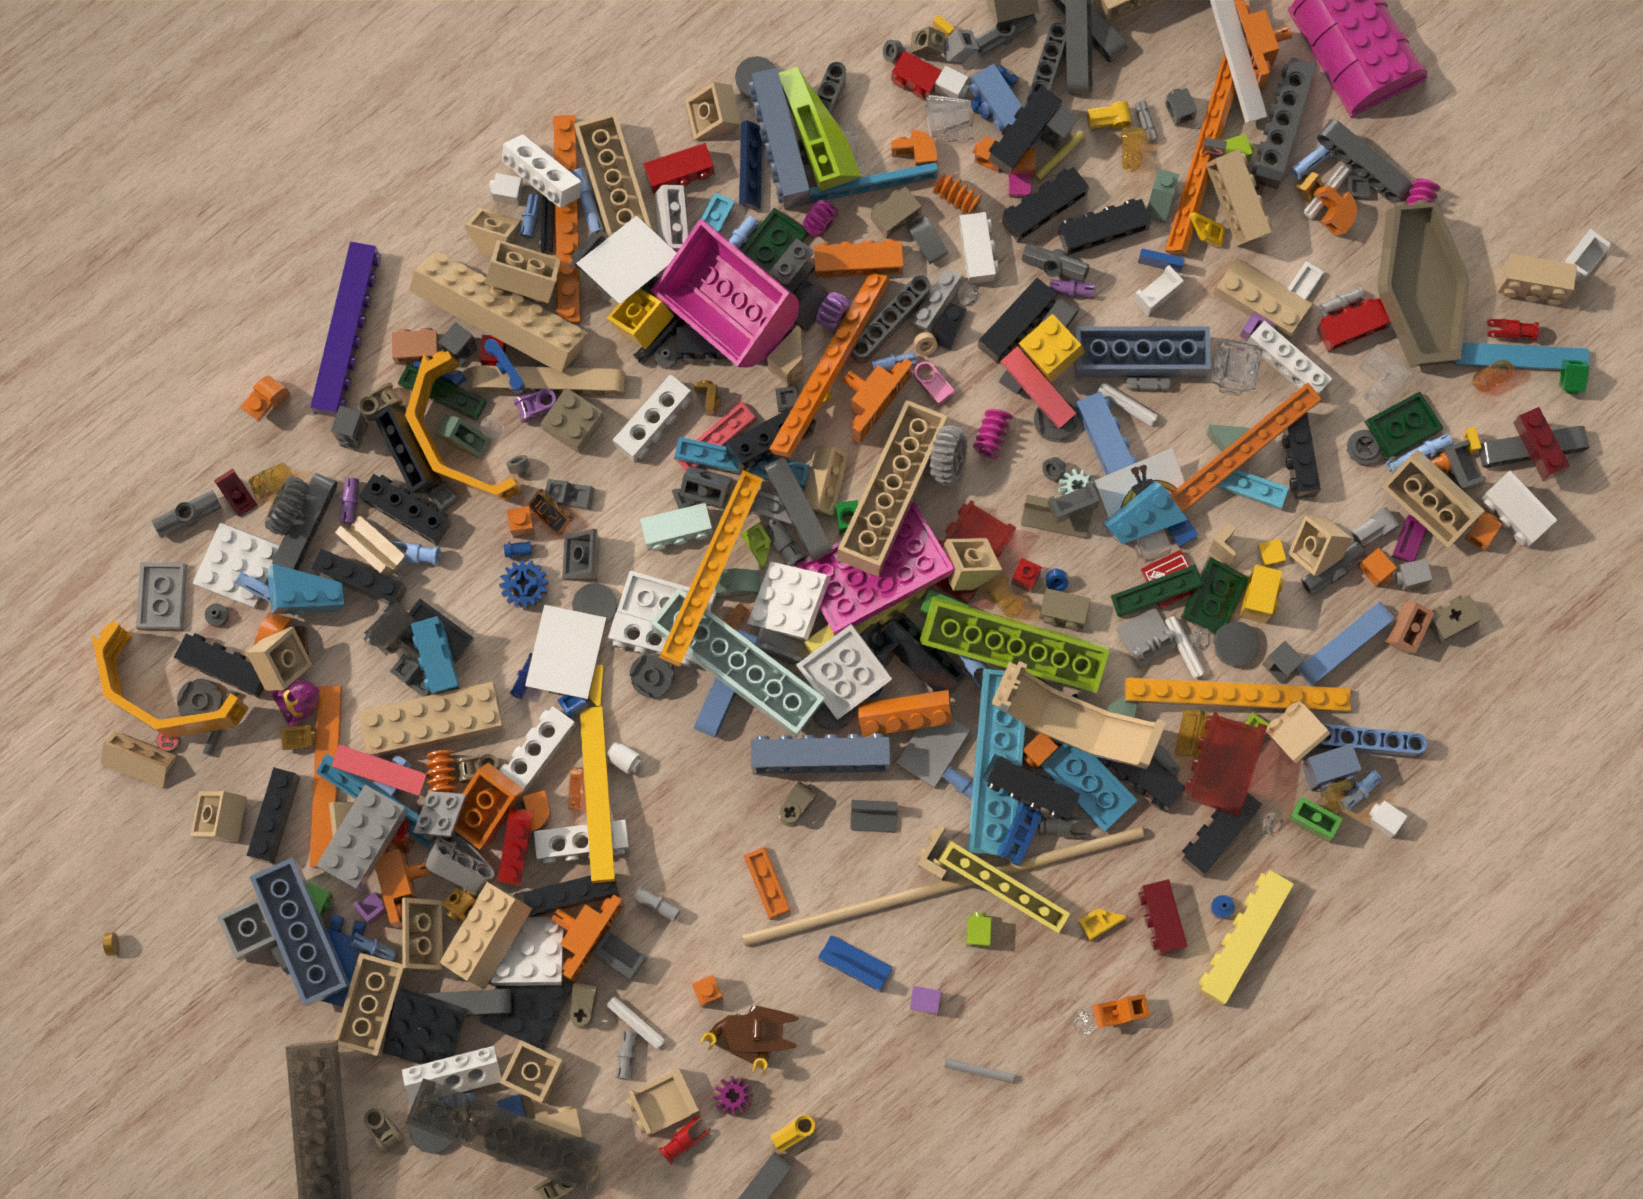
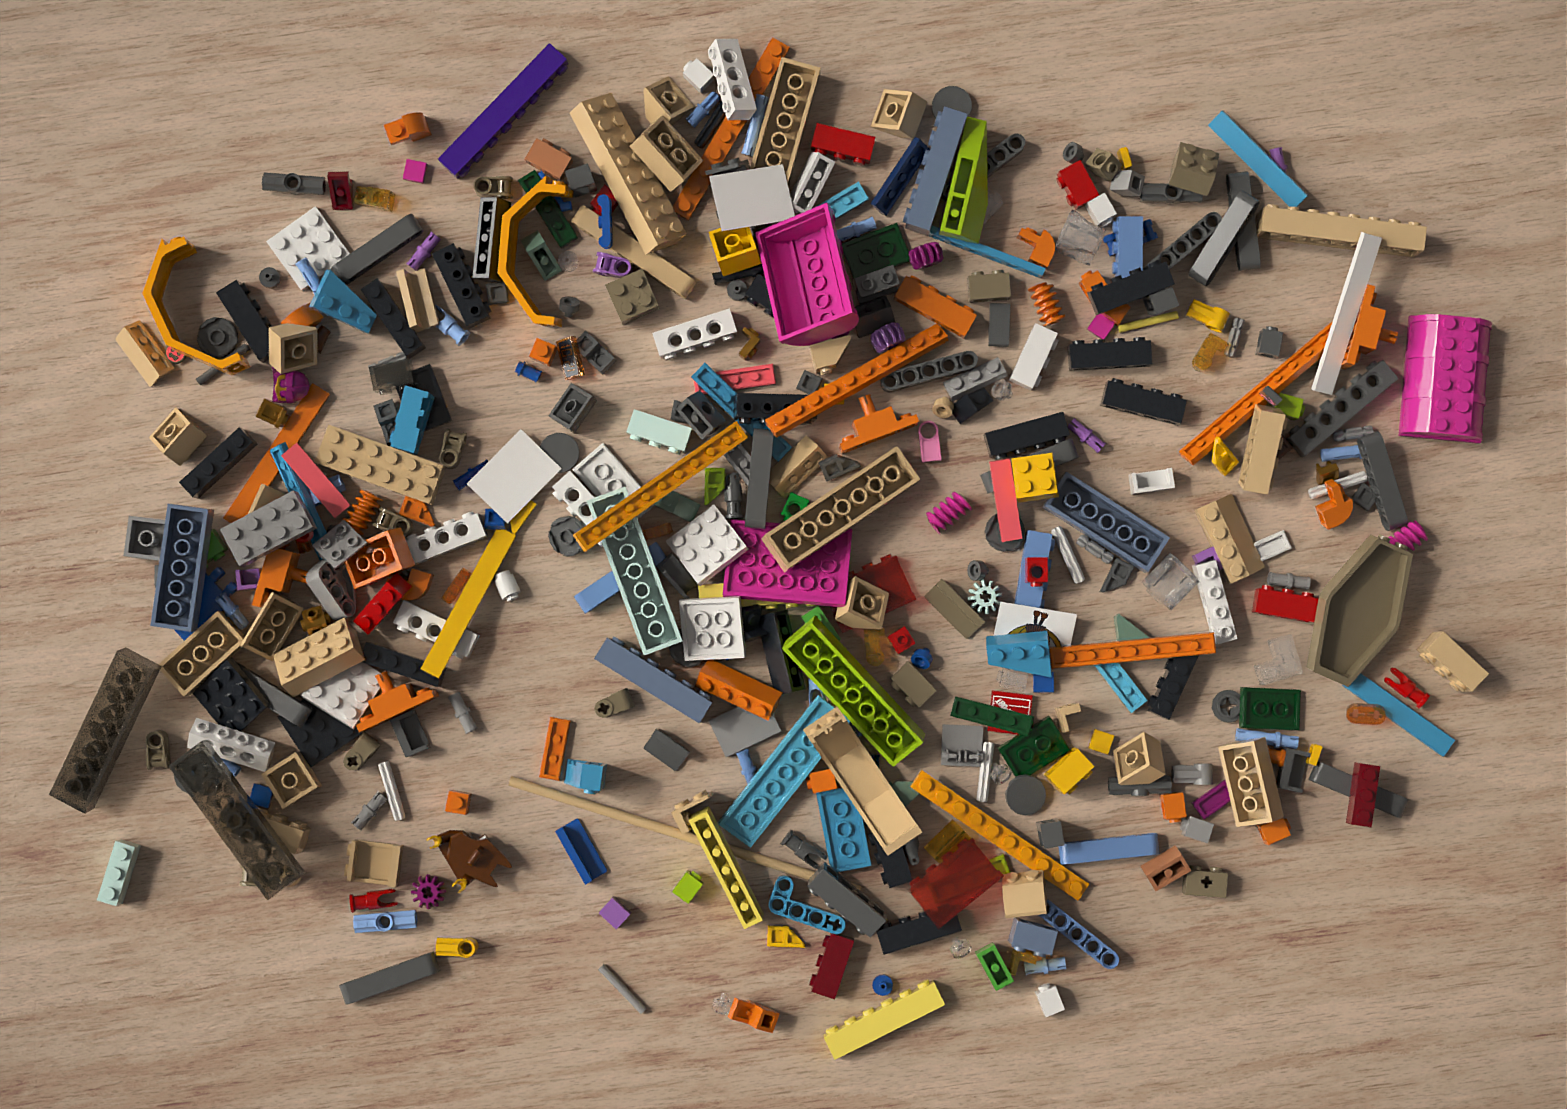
camera: 30 degrees right, 10 degrees up
(111, 944) = (41, 483): pearl gold tile -> none
(161, 596) = (237, 236): light grey tile -> none
(286, 505) = (371, 227): dark grey gear -> none
(295, 434) = (415, 171): none -> dark pink tile
(349, 427) = (456, 195): dark grey brick -> none
(490, 660) = (453, 447): none -> dark tan piece
(493, 743) = (417, 511): none -> orange tile
(515, 584) = (520, 393): blue gear -> none
(696, 1162) = (372, 922): none -> light blue piece
(813, 884) = (586, 775): none -> dark azure wedge
(862, 456) = (837, 466): none -> dark grey tile
(889, 362) = (909, 407): medium blue axle -> none
(948, 455) = (901, 510): light grey gear -> none
(1020, 834) = (765, 835): blue plate -> none
(1031, 786) = (795, 807): black brick -> none
(1055, 263) = (1086, 408): dark grey piece -> none
(1073, 503) = (971, 609): dark grey panel -> none
(1105, 880) = (808, 909): none -> dark azure beam
(1109, 421) = (1042, 563): none -> red brick
(1136, 845) = (847, 900): none -> dark grey brick
(1160, 260) = (1169, 458): blue tile -> none
(1162, 195) = (1205, 406): sand green slope -> none
(1184, 394) = (1117, 575): none -> dark grey tile
(1307, 140) = (1352, 433): none -> light grey axle
(1518, 509) = (1310, 832): white slope -> none
(1574, 376) = (1427, 755): green brick -> none
(1588, 254) = (1504, 665): white panel -> none

